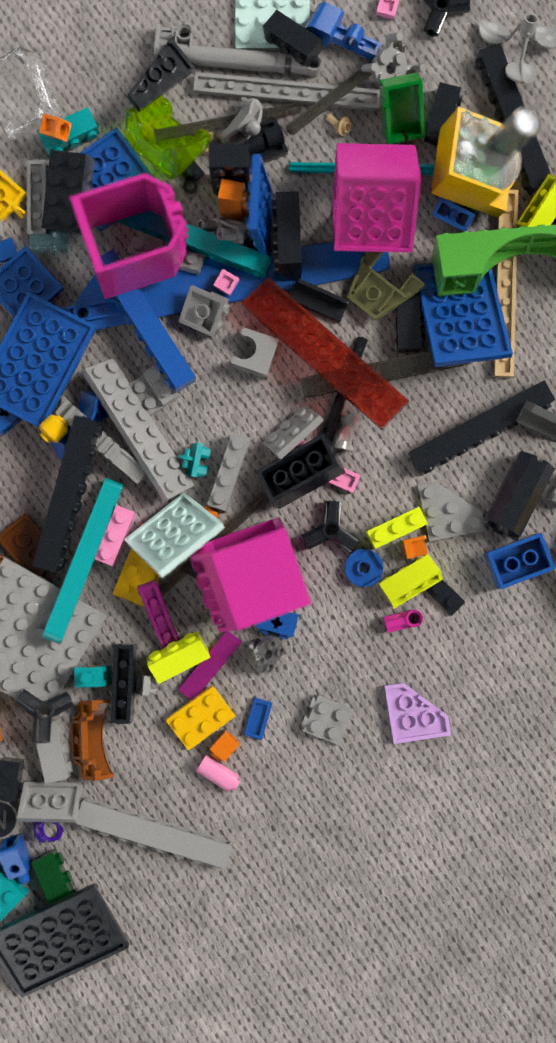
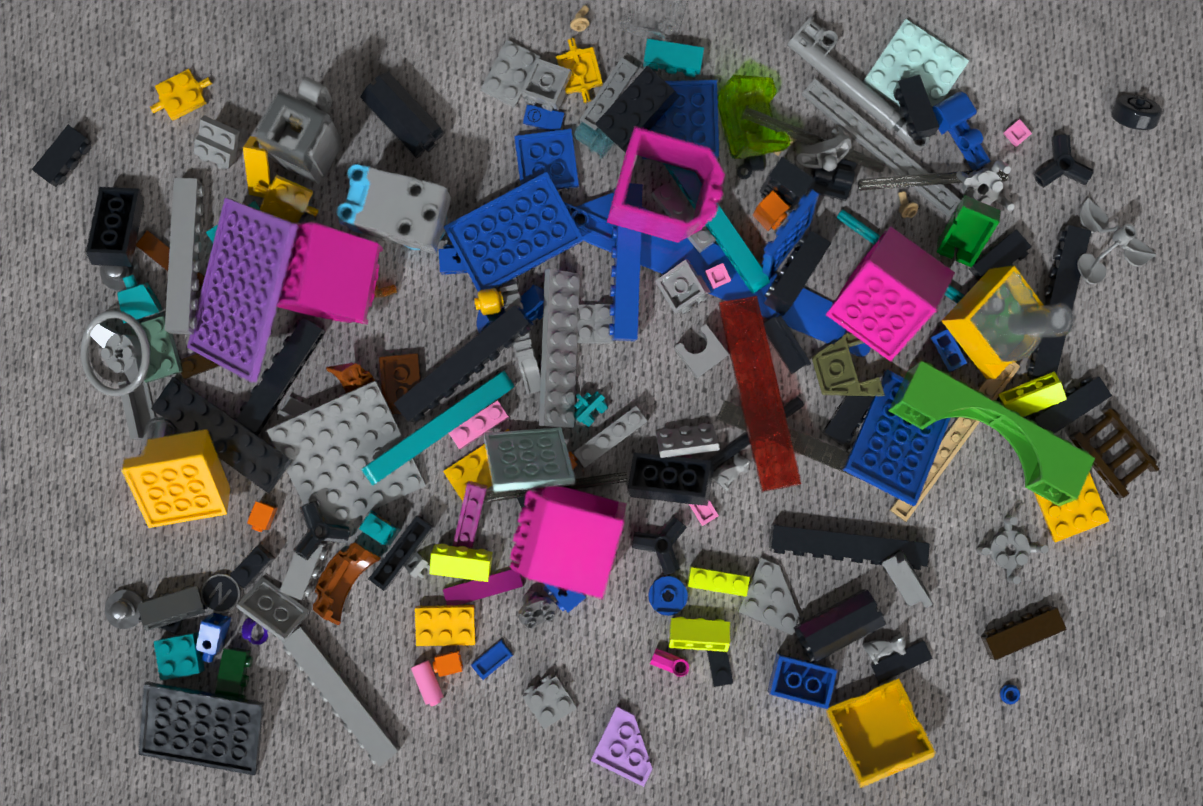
camera: 30 degrees right, 0 degrees up
(55, 127) = (663, 49): orange brick -> none
(164, 73) = (785, 64): black wing -> none
(226, 229) = (749, 231): light grey connector -> none
(414, 547) = (722, 608): orange panel -> none

